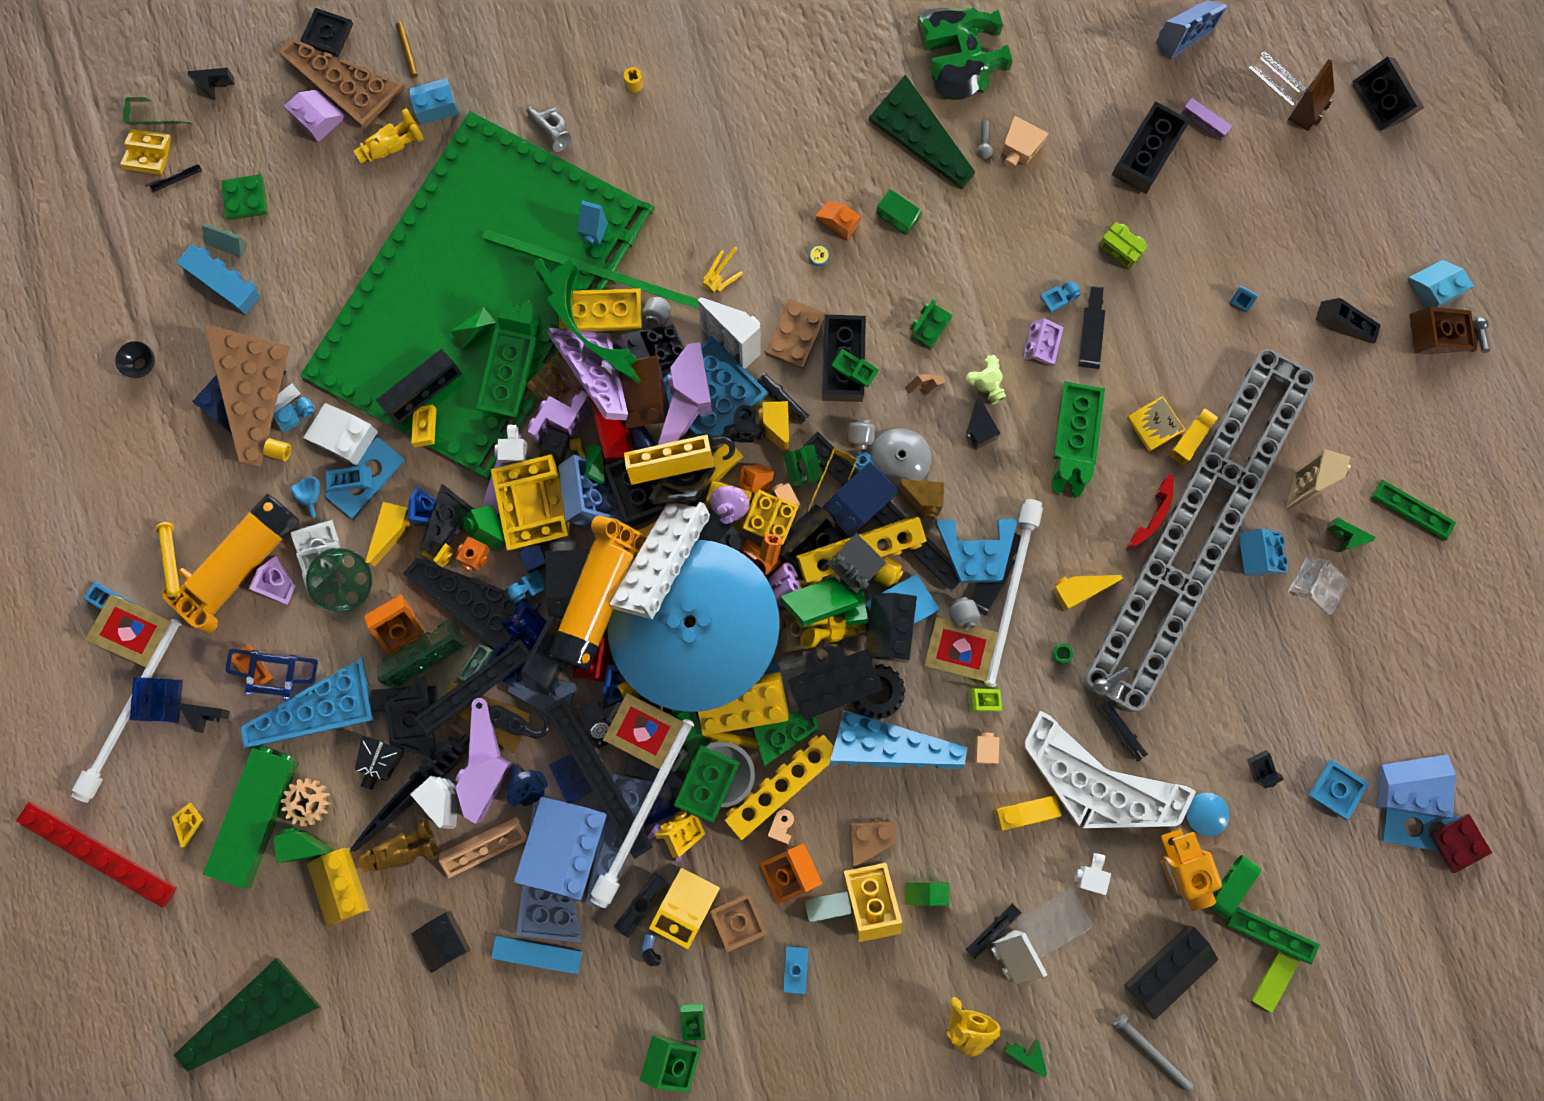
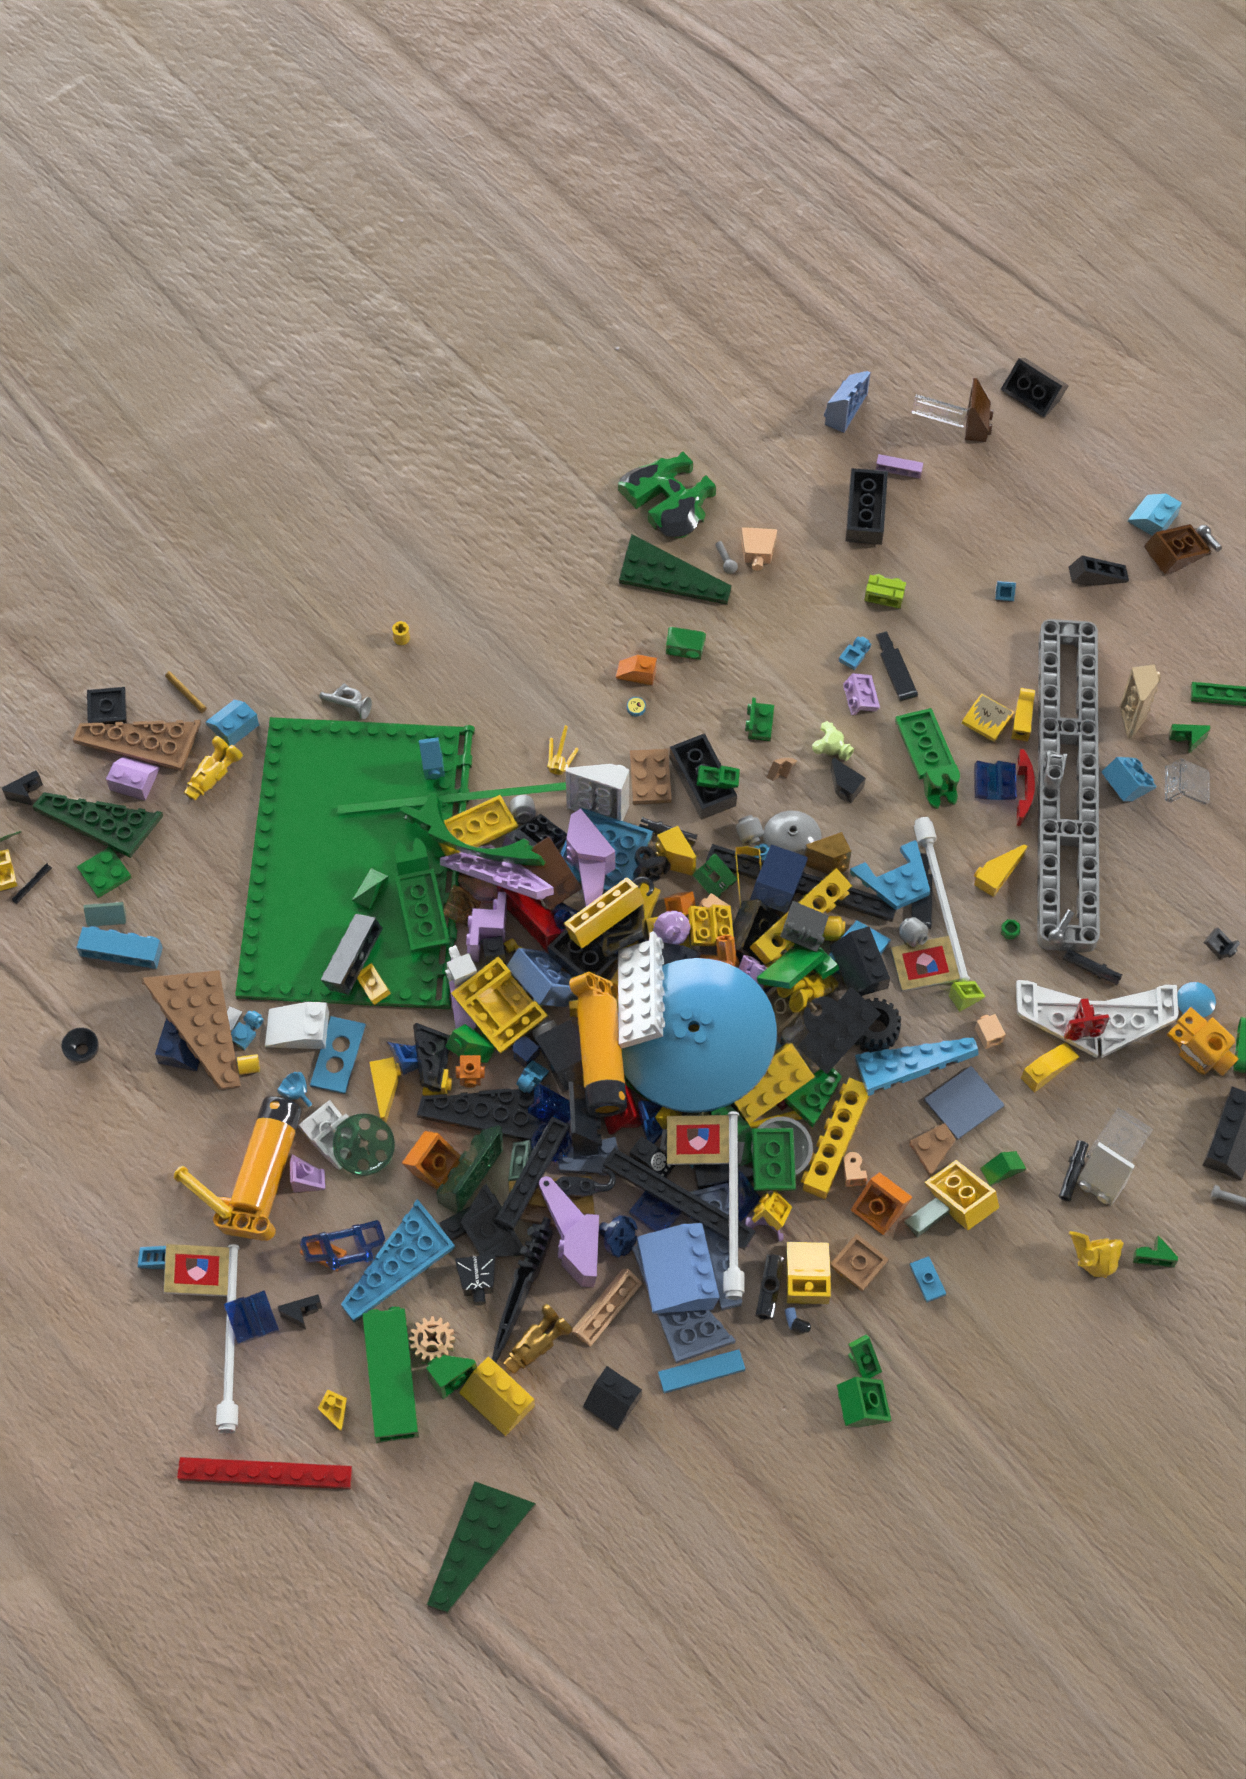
camera: 25 degrees left, 15 degrees down
(268, 149) = (104, 822): none -> dark green wing
(362, 478) = (336, 1061): dark azure slope -> none
(439, 801) = (552, 1277): white slope -> none
(595, 463) = (537, 946): green slope -> none
(631, 443) = (560, 917): none -> clear blue plate
(924, 808) = (964, 1102): none -> sand blue piece
(1083, 787) = (1085, 1022): none -> red bracket
(1092, 877) = (1131, 1090): white brick -> none
(1128, 492) = (995, 780): none -> clear blue slope
(1193, 509) = (1054, 767): none -> light grey piece

